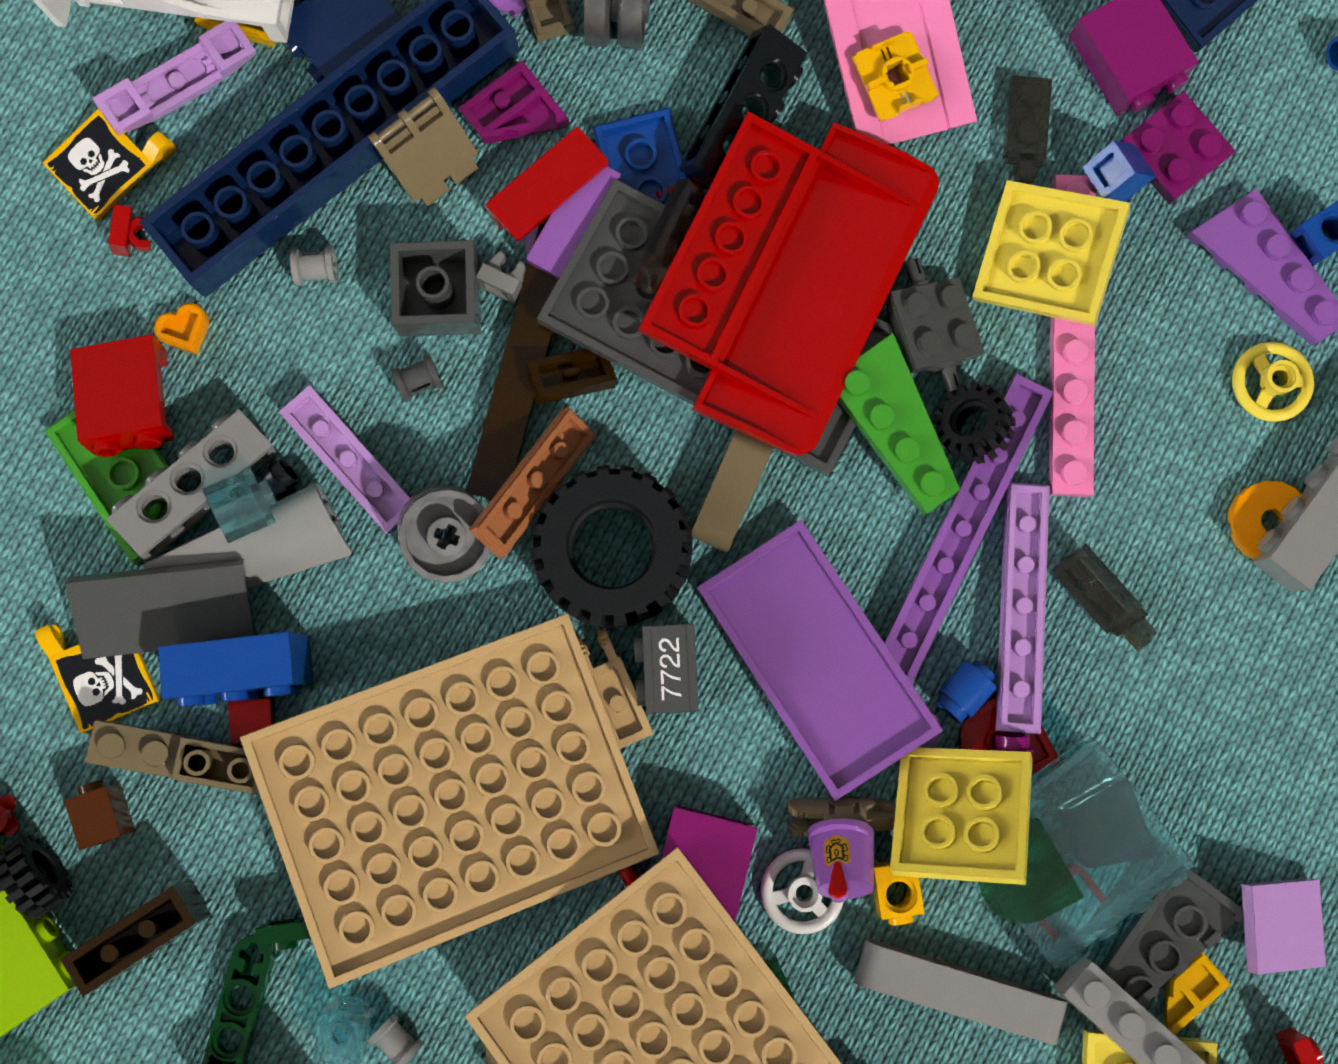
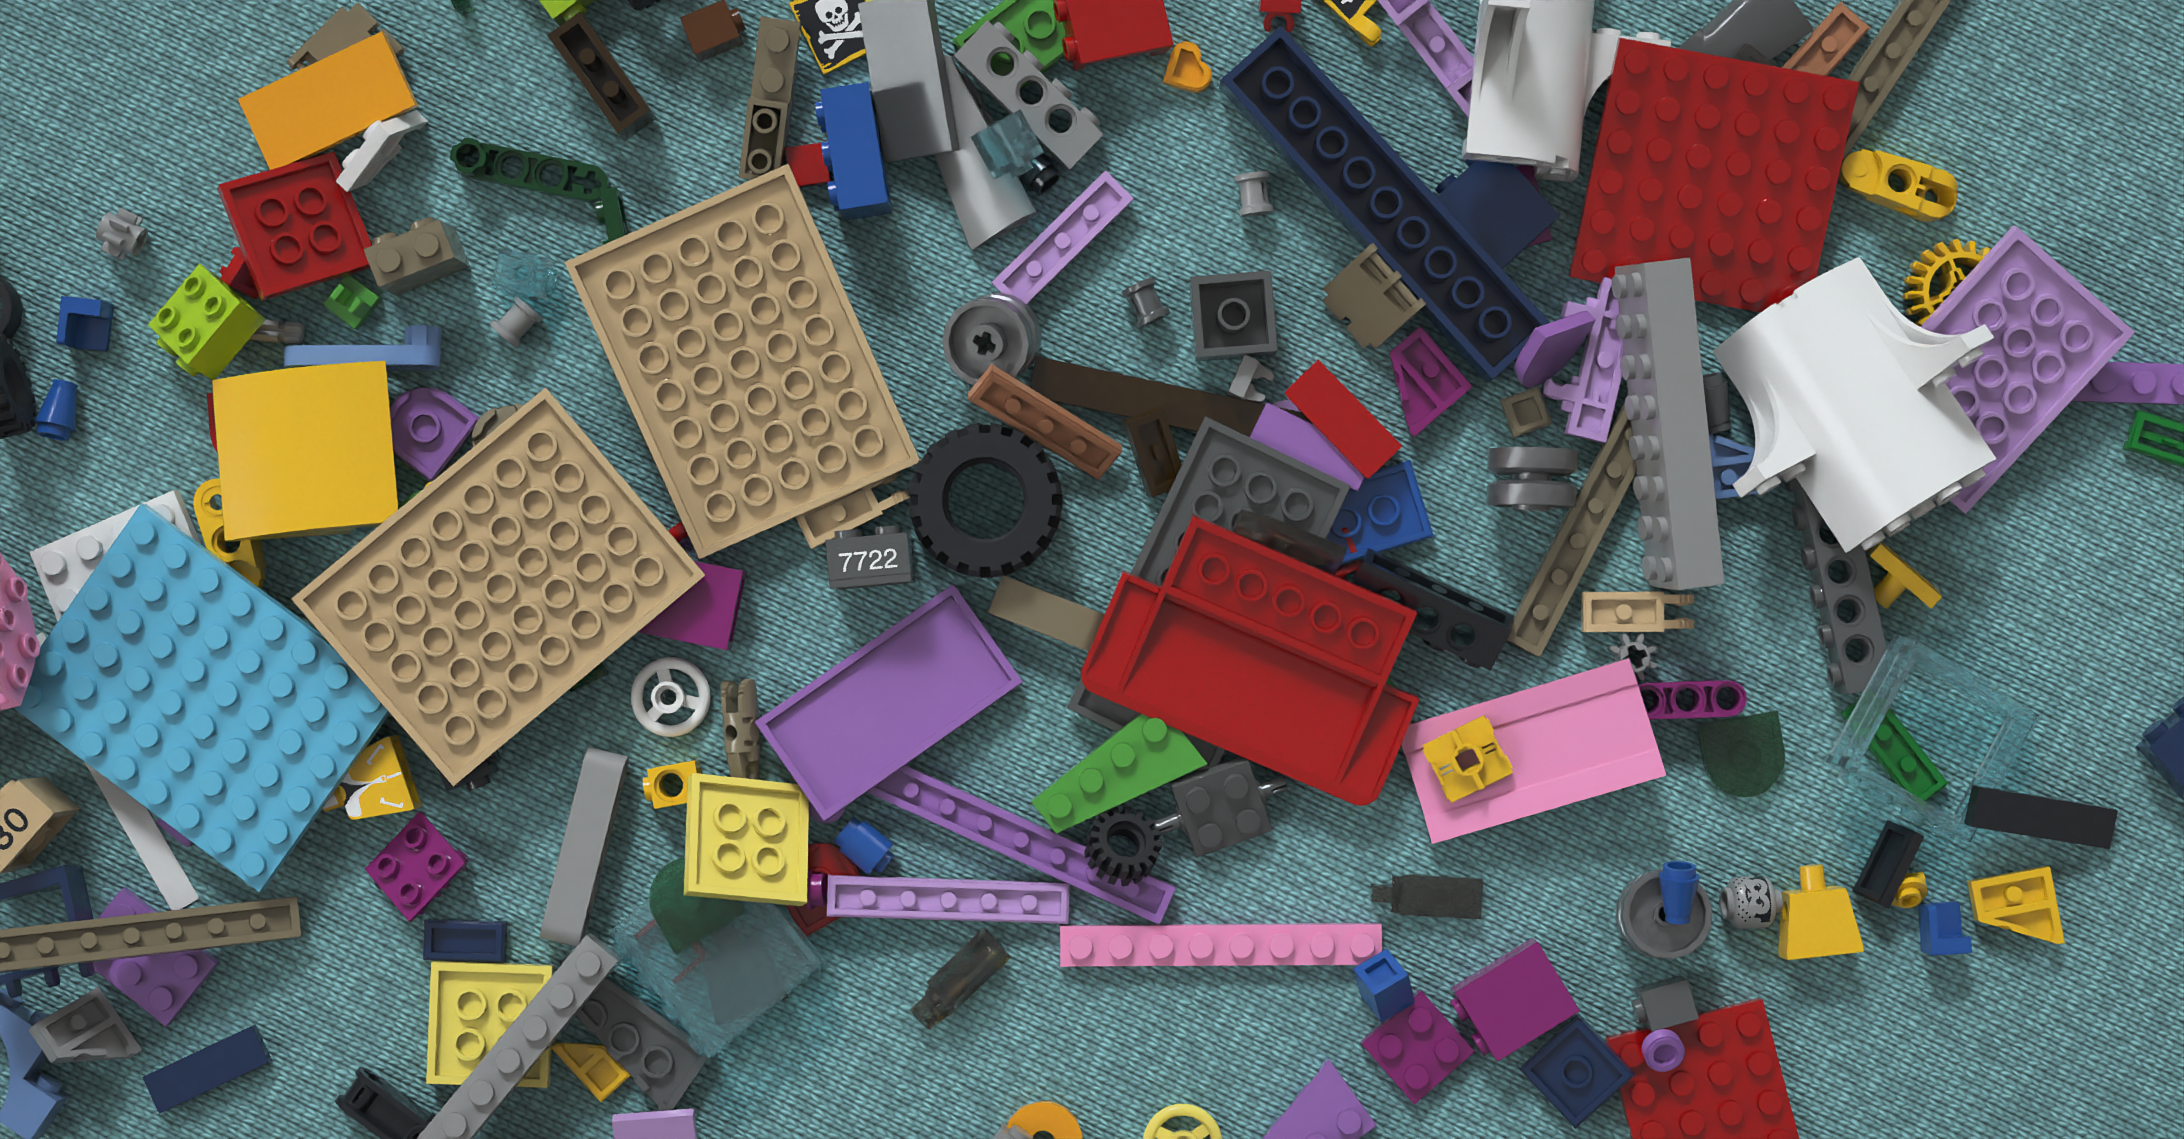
camera: 85 degrees right, 5 degrees up
(843, 858) = (702, 731): medium lavender hat -> none
(1051, 252) = (1296, 917): light yellow plate -> none

